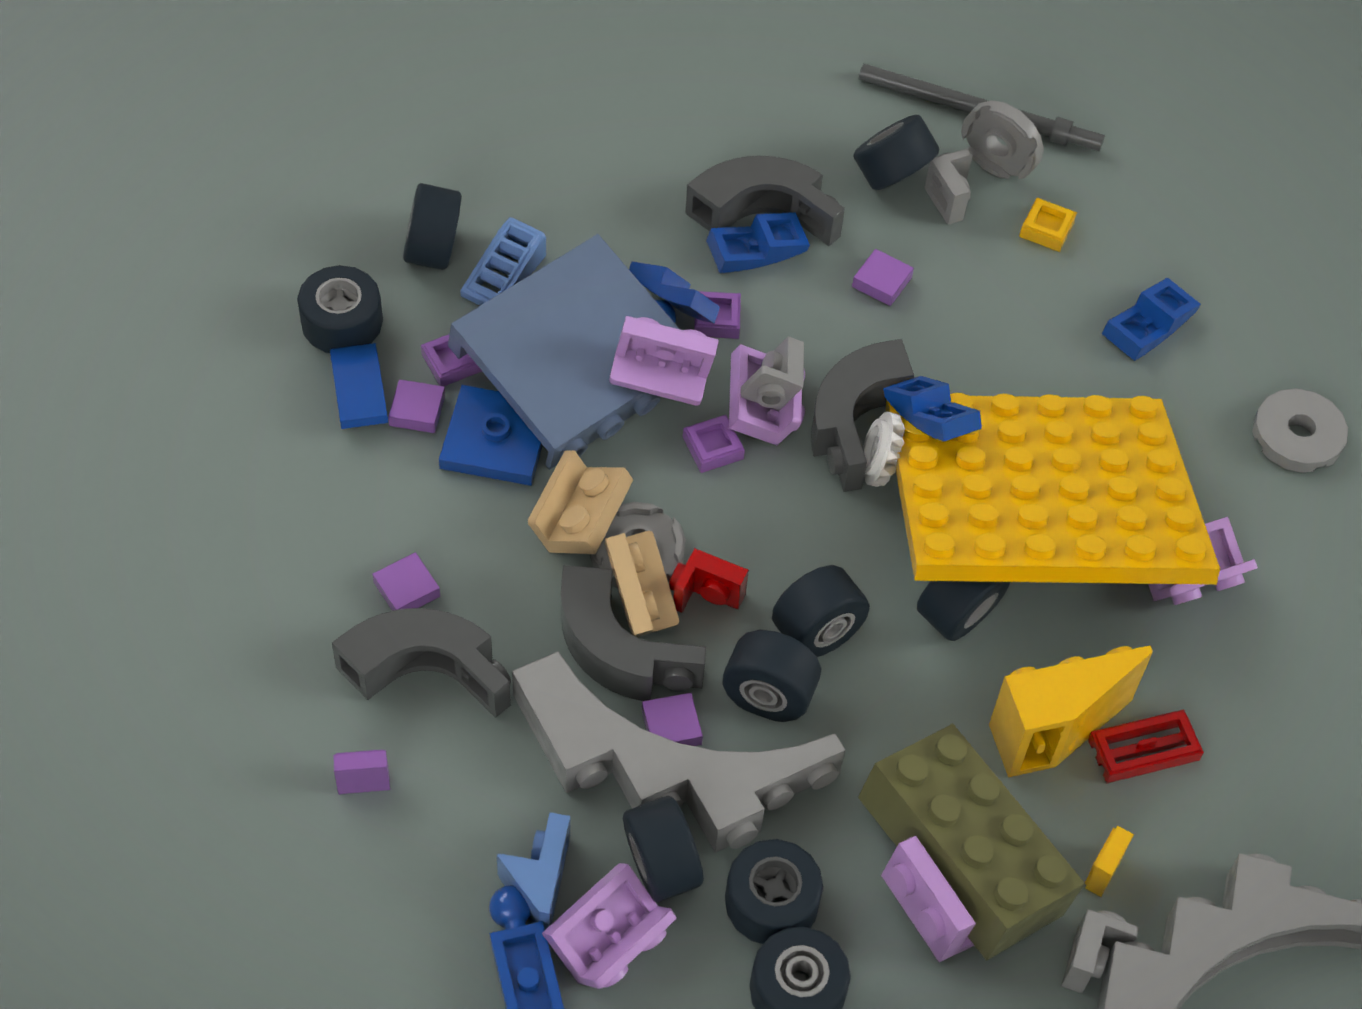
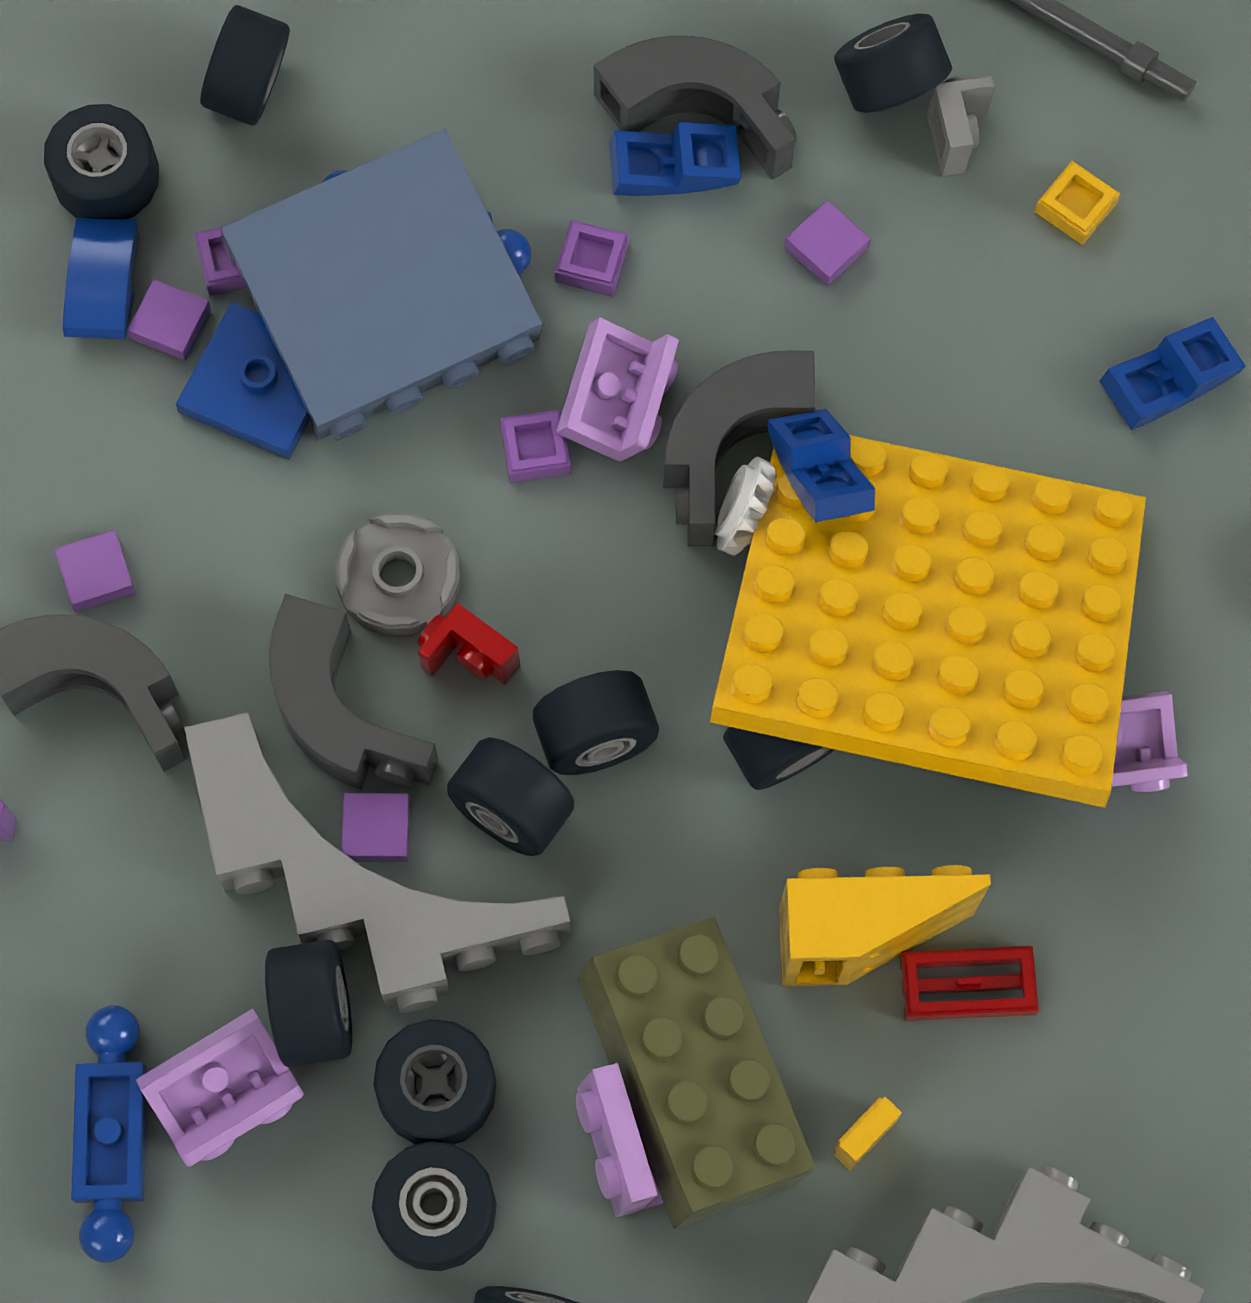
camera: 15 degrees right, 15 degrees up
(516, 241) = (332, 107): medium blue slope -> none
(541, 875) = (156, 1012): medium blue slope -> none
(578, 505) = (333, 505): tan bracket -> none
(641, 583) = (377, 637): tan bracket -> none
(663, 360) = (479, 334): lavender bracket -> none
(675, 291) = (533, 221): blue slope -> none
(778, 377) = (636, 376): light grey bracket -> none
(1002, 120) = (1042, 71): light grey tile -> none
(1092, 945) = (803, 1252): light grey bracket -> none

